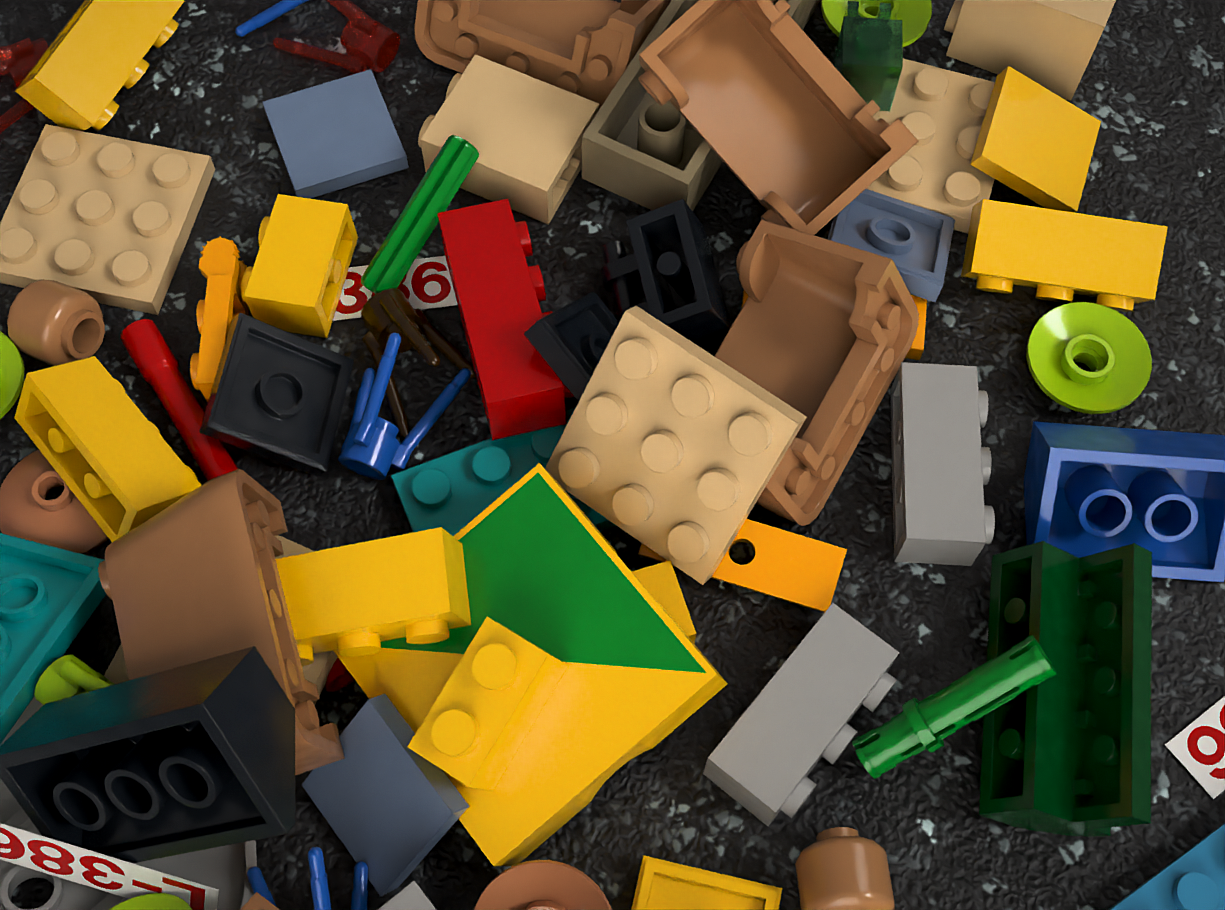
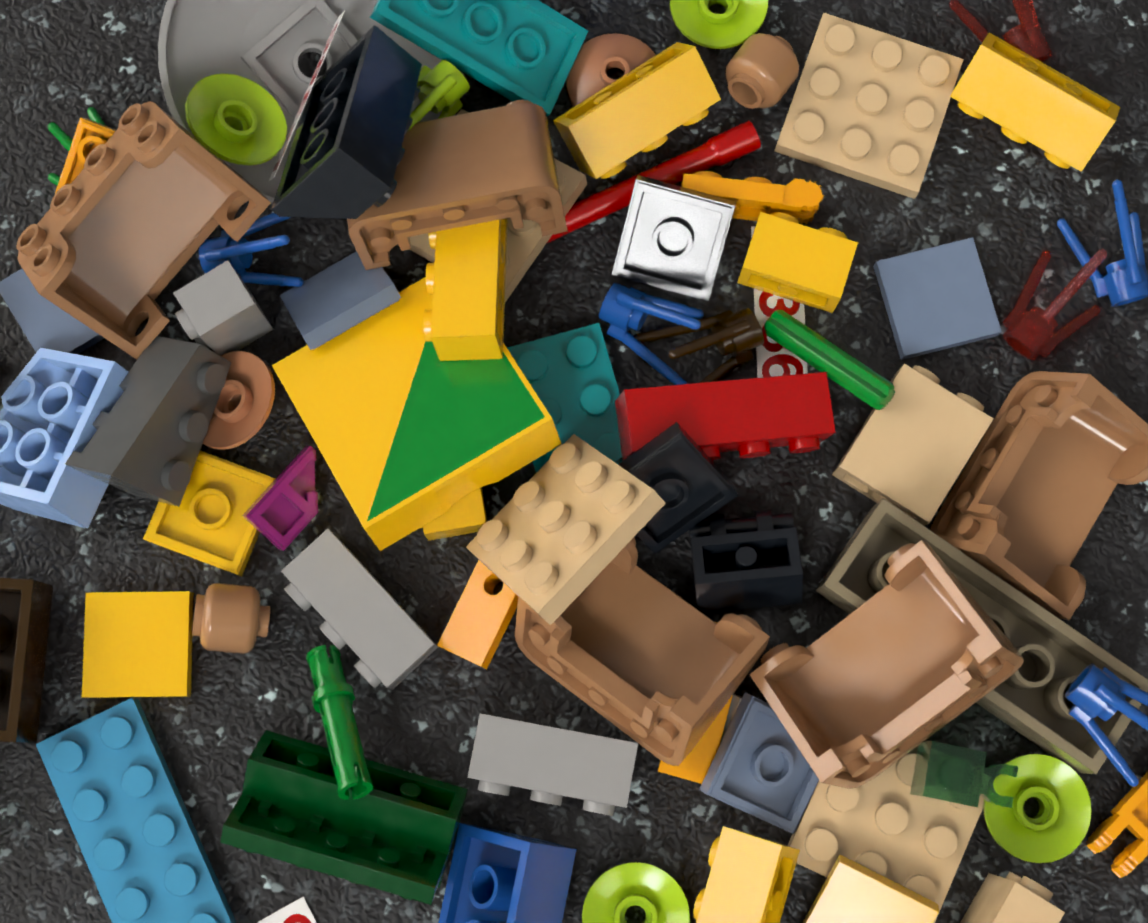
camera: 100 degrees right, 15 degrees up
(487, 706) = (367, 363): yellow brick -> none
(672, 834) = (288, 502): none -> magenta tile

